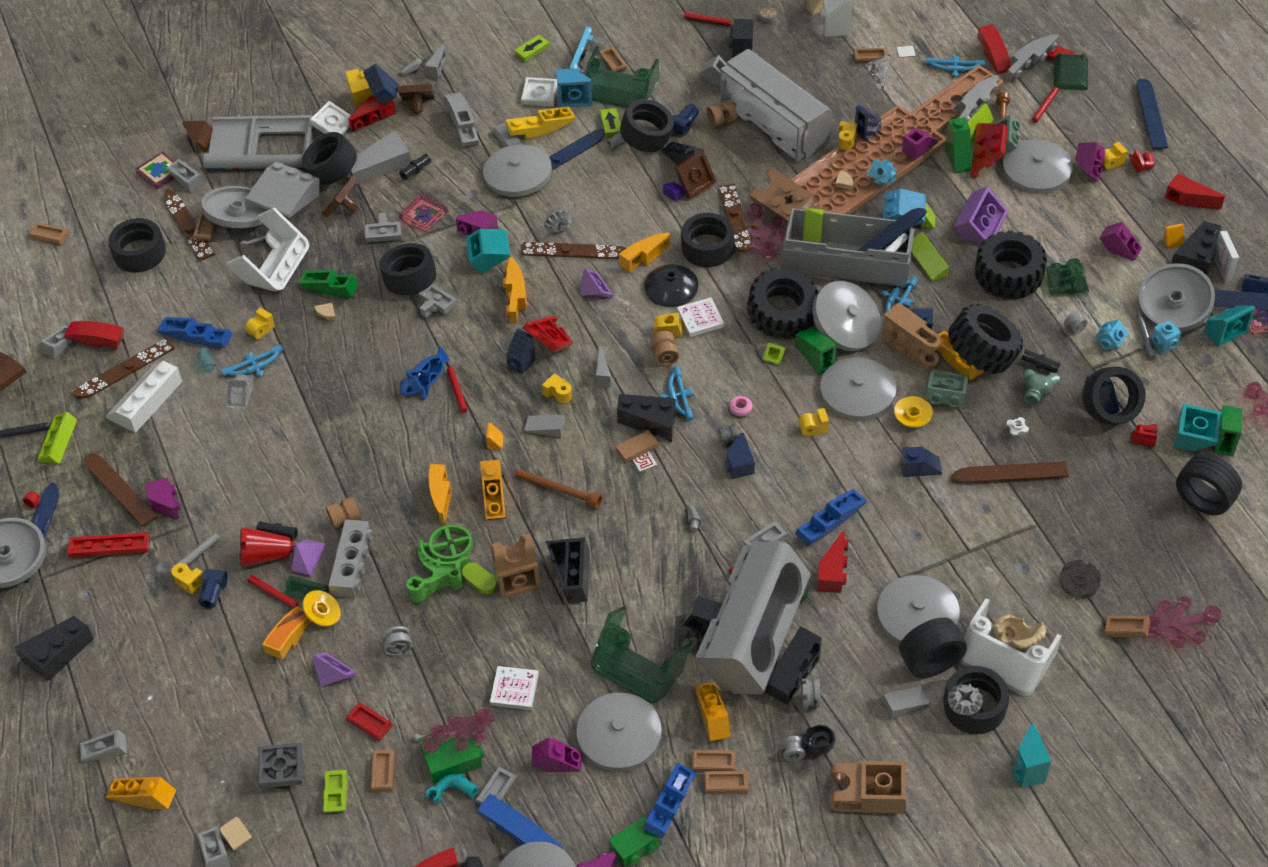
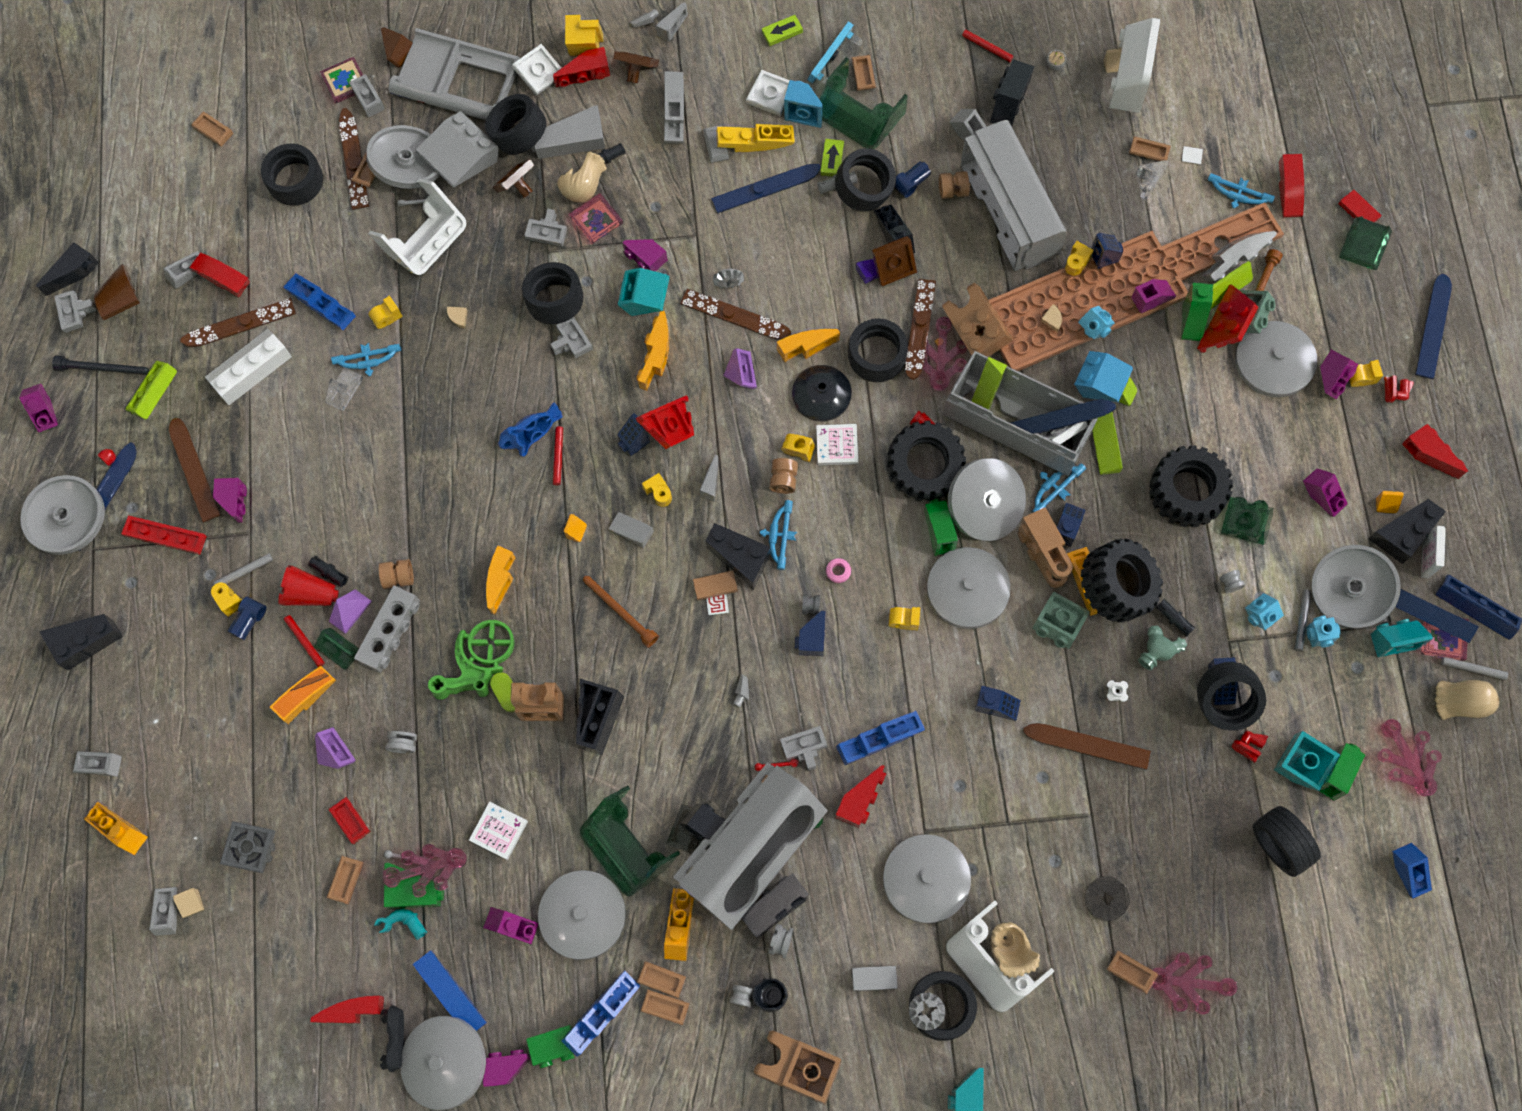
camera: 20 degrees right, 20 degrees up
(204, 355) = (321, 338): clear light blue pin -> none
(321, 608) = (350, 676): yellow dish -> none
(329, 282) = (470, 281): green slope -> none
(335, 791) = (294, 889): lime slope -> none
(381, 84) = (596, 45): dark blue slope -> none
(404, 186) = (582, 184): none -> tan piece
(492, 489) = (552, 592): light orange slope -> none
(497, 785) = (444, 937): light grey tile -> none
(517, 170) = (711, 193): light grey dish -> none
(774, 353) = (897, 515): lime slope -> none
(913, 406) = (1015, 629): yellow dish -> none
(932, 647) = (918, 938): black tyre -> none
(980, 216) = (1184, 411): medium lavender slope -> none
(1031, 53) = (1328, 207): light grey slope -> none
(1045, 104) = (1319, 277): red bar -> none

